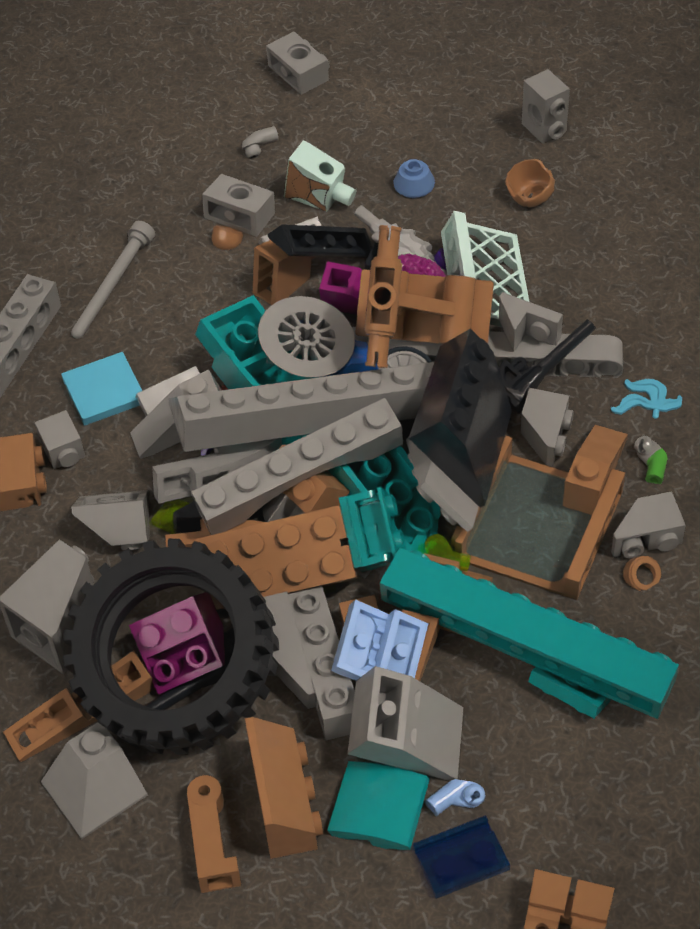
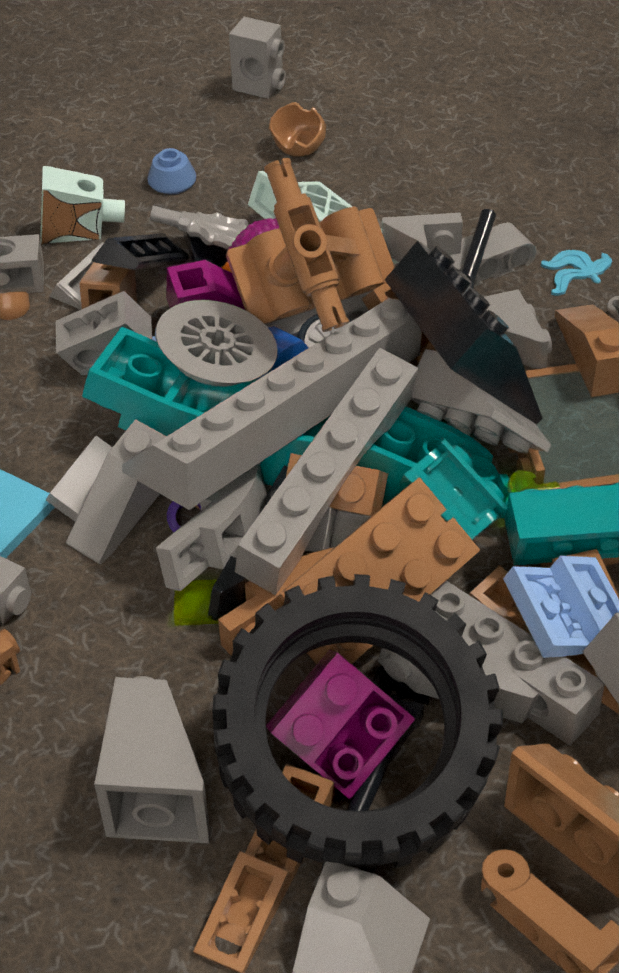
camera: 35 degrees left, 5 degrees down
(116, 517) = (138, 630): light grey slope -> none
(245, 282) = (87, 332): none -> light grey brick

